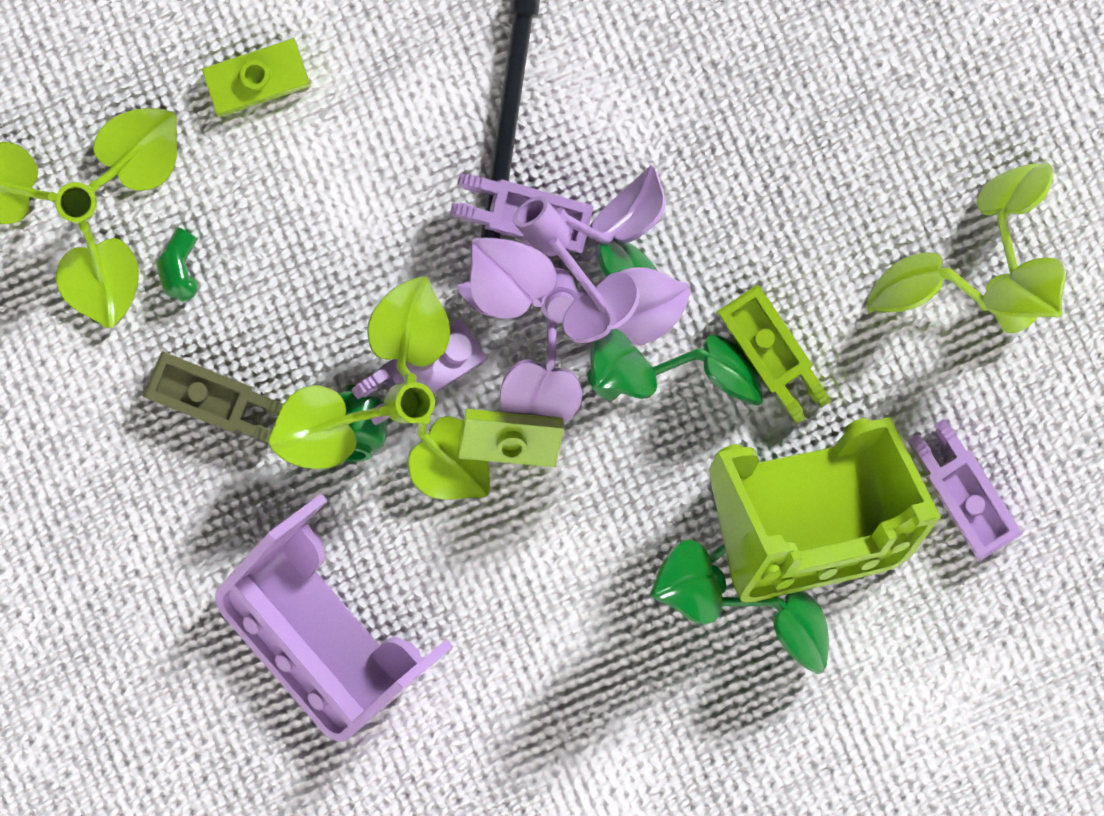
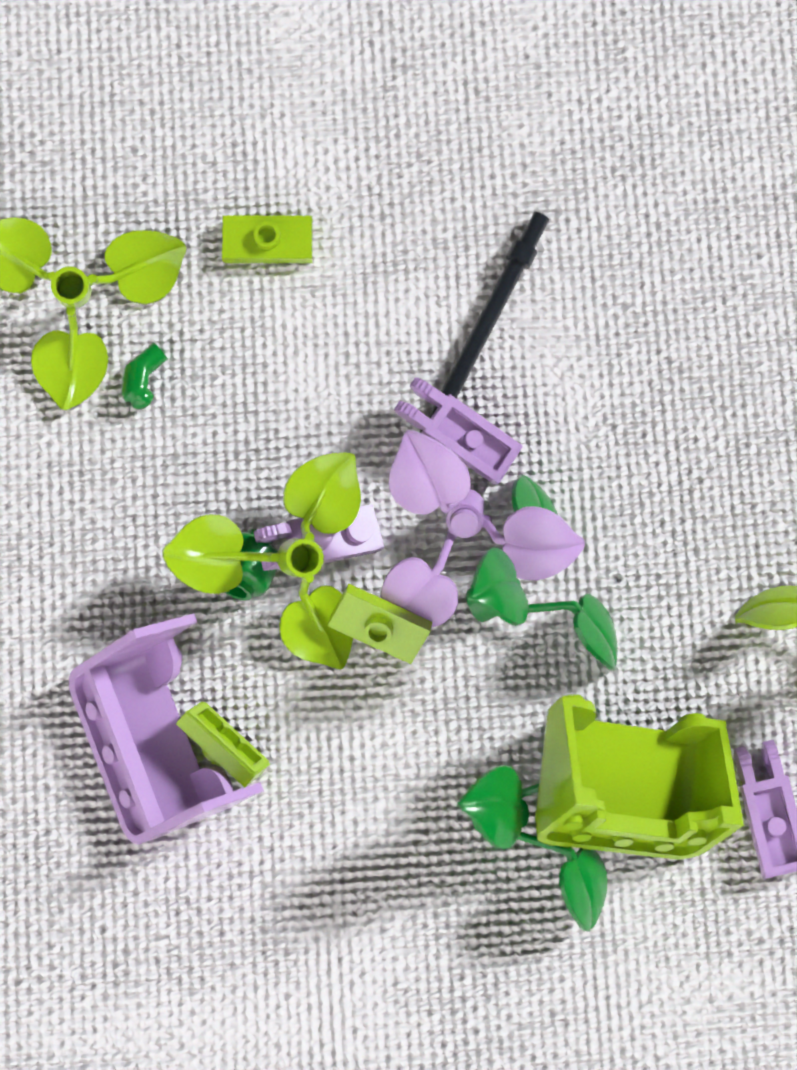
camera: 15 degrees right, 5 degrees down
(207, 396) = (125, 496): olive hinge -> none
(394, 612) = (223, 744): none -> lime plate
(625, 219) = (545, 466): lavender plant -> none
(771, 349) = (638, 626): lime hinge -> none

